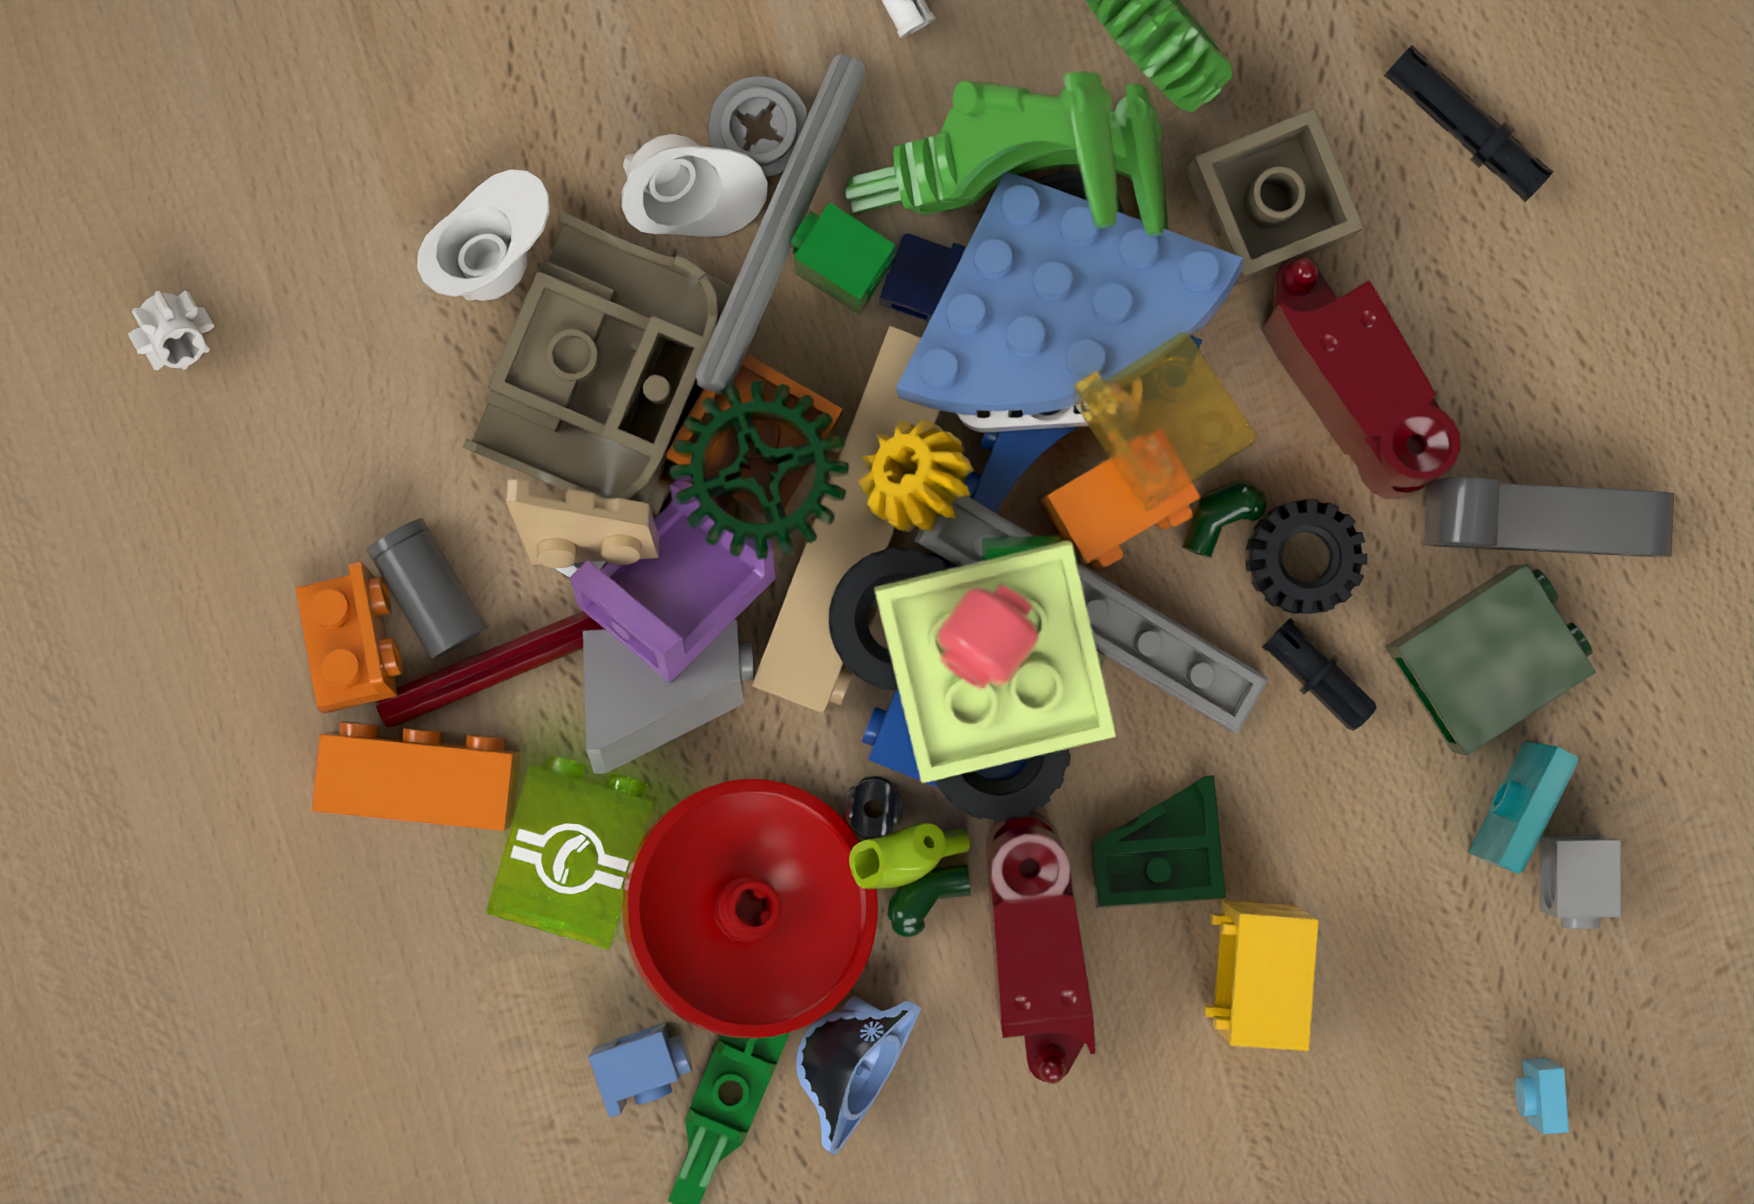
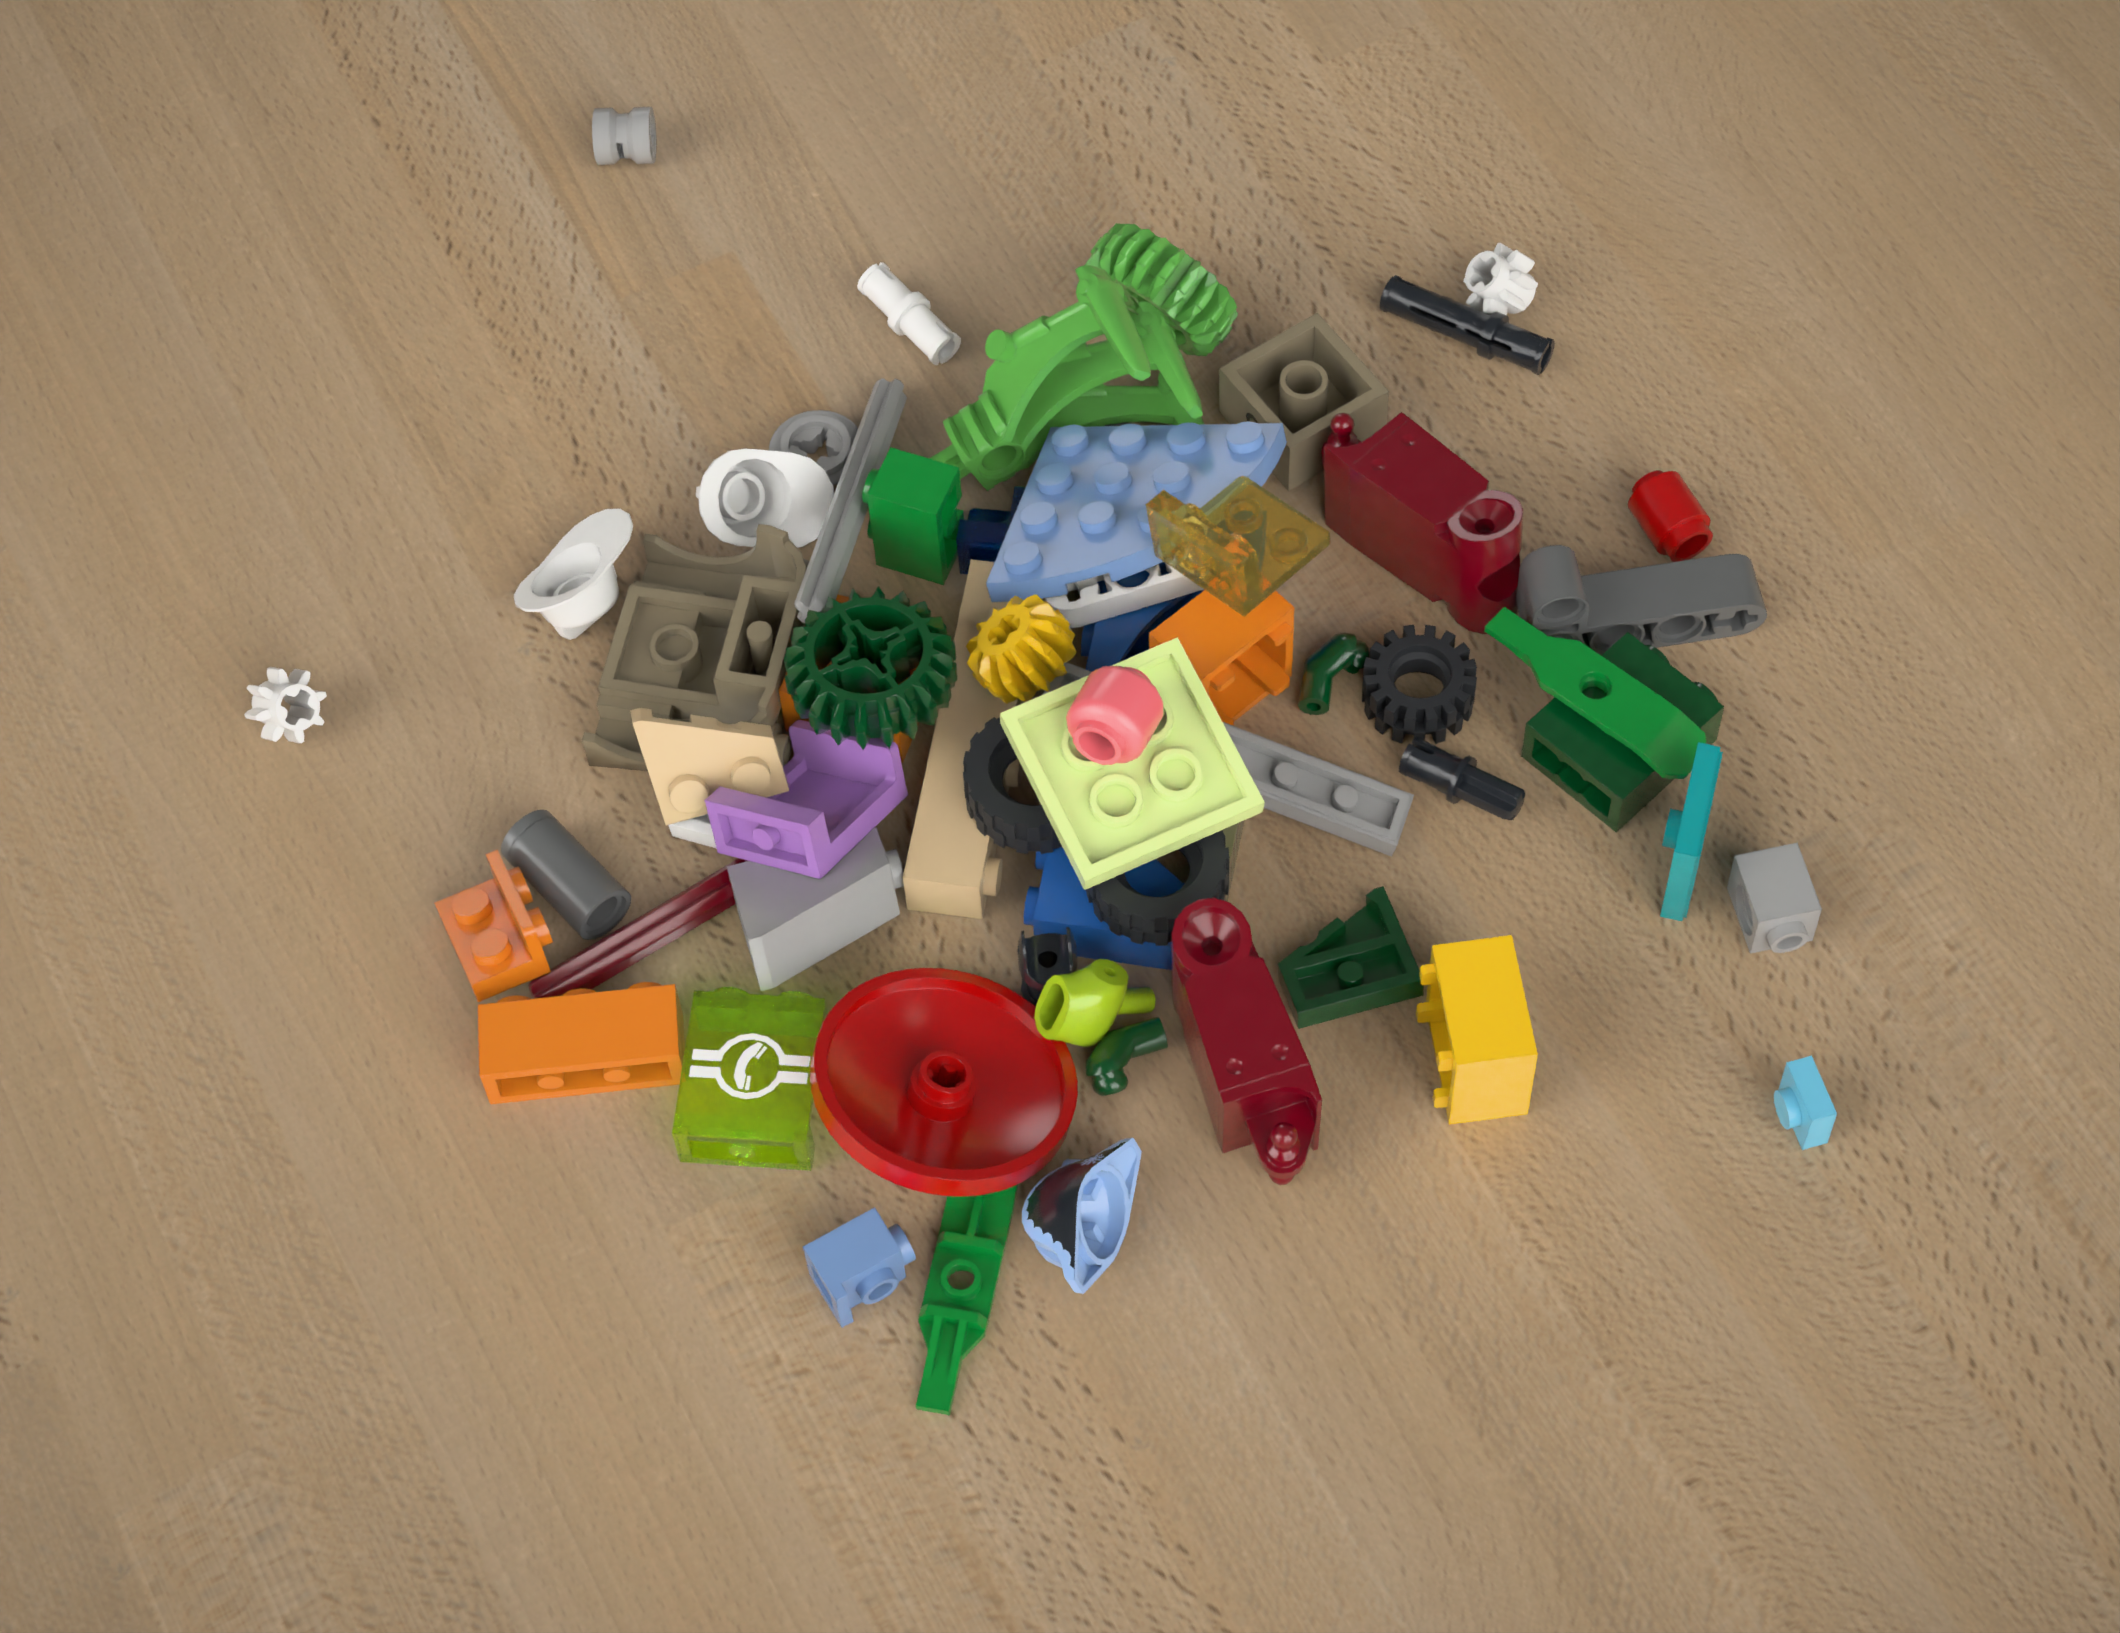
camera: 10 degrees left, 30 degrees down
(1502, 664) = (1627, 713): none -> green piece
(1518, 84) = (1500, 281): none -> white gear
(1610, 415) = (1670, 515): none -> red brick

